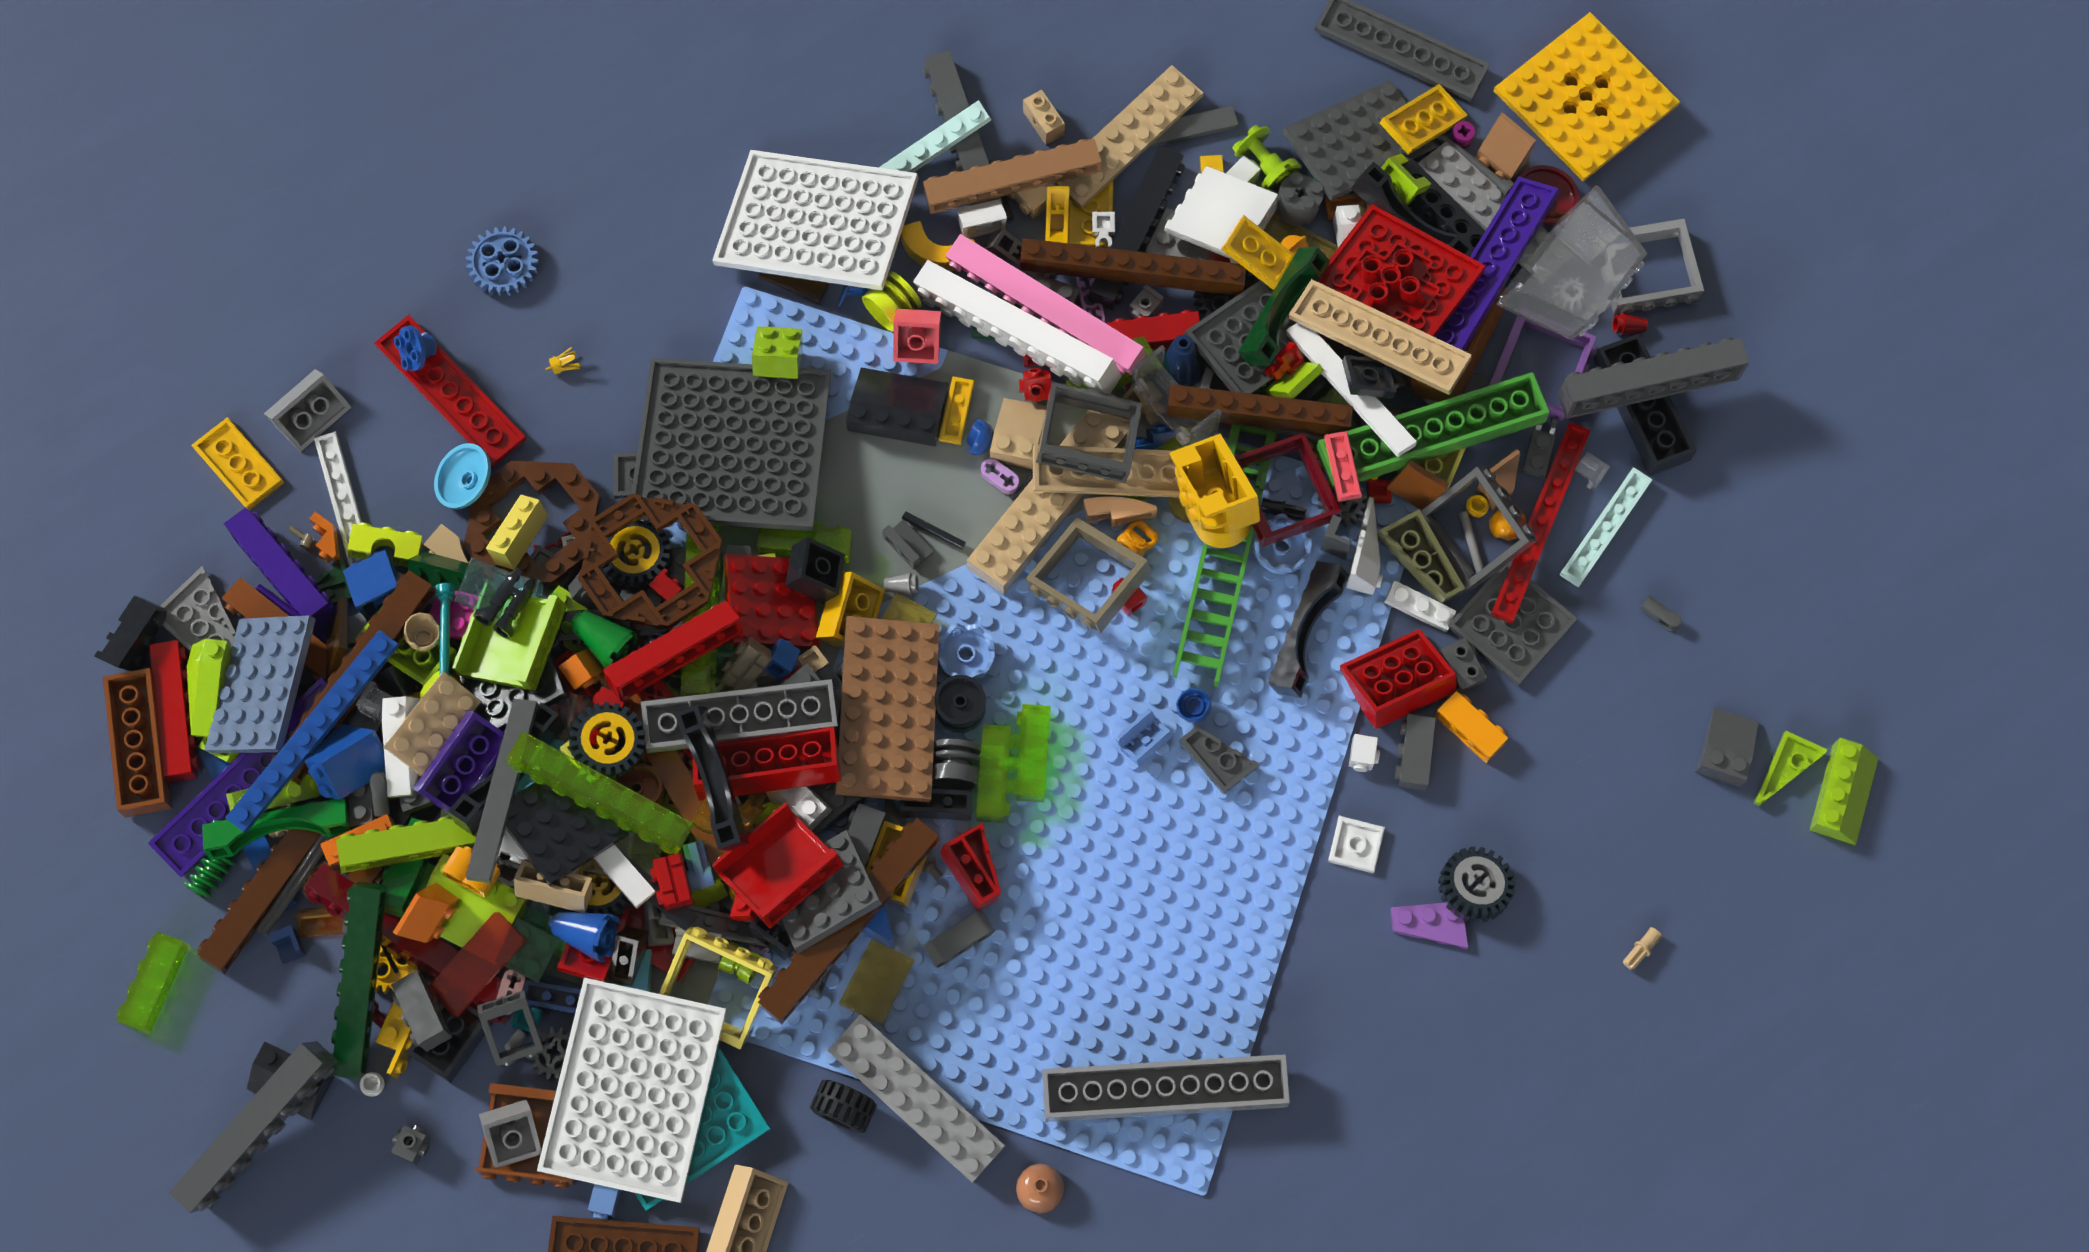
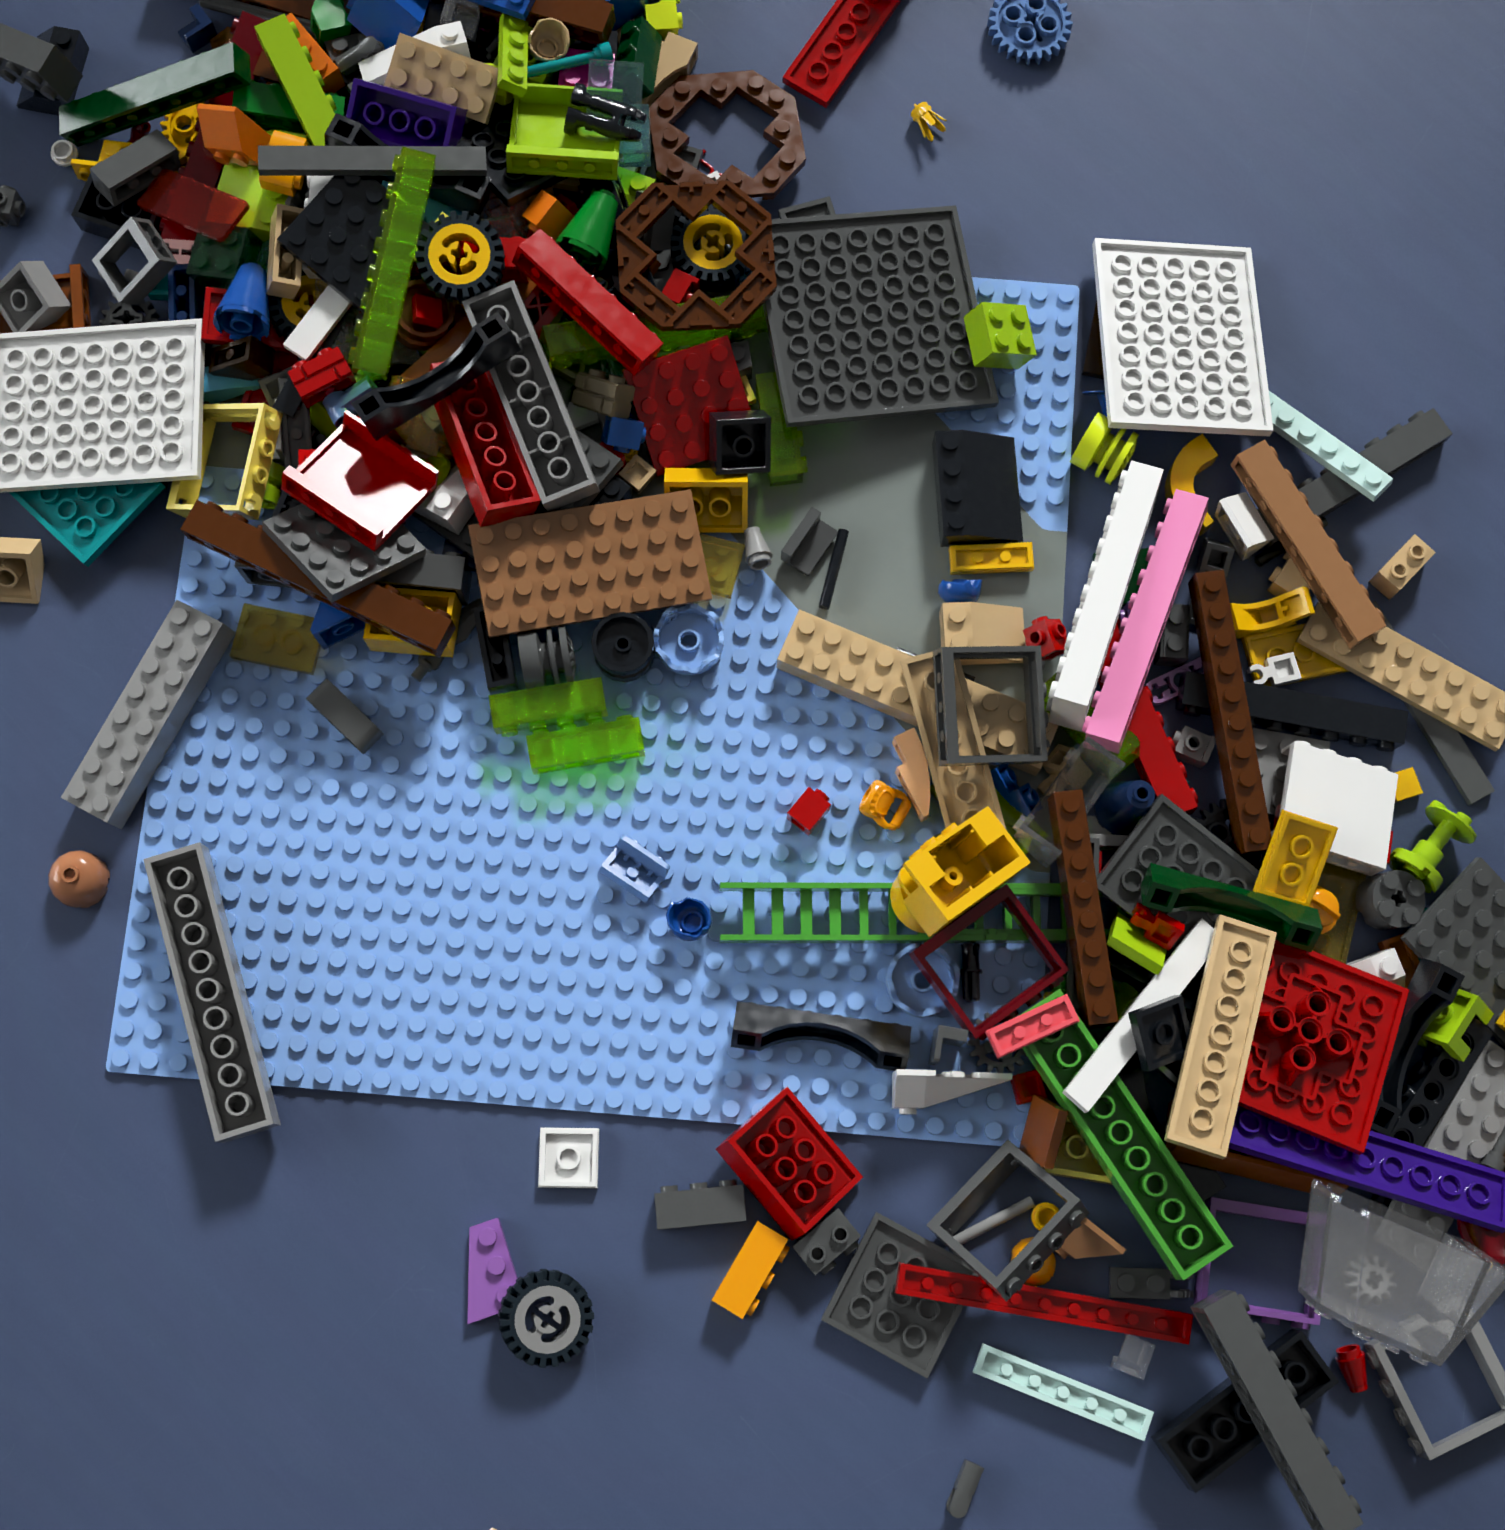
camera: 75 degrees right, 5 degrees up
(430, 661) = (513, 55): none -> lime plate
(462, 476) = (759, 50): medium azure dish -> none
(517, 532) = (704, 118): light yellow brick -> none
(641, 781) = (427, 310): none -> red tile
(843, 1106) = (120, 634): black tyre -> none
(916, 336) = (1065, 484): coral brick -> none
(972, 867) = (430, 709): red wedge -> none
(1003, 472) = (915, 624): lavender beam -> none
(1100, 620) = (797, 795): dark tan window -> none
(1219, 762) = (630, 963): dark grey wing -> none
(1246, 170) = (1408, 825): white brick -> none
(1363, 753) = (683, 1141): white brick -> none
(1419, 606) = (892, 1171): white plate -> none
(1421, 554) = (958, 1154): olive wedge -> none

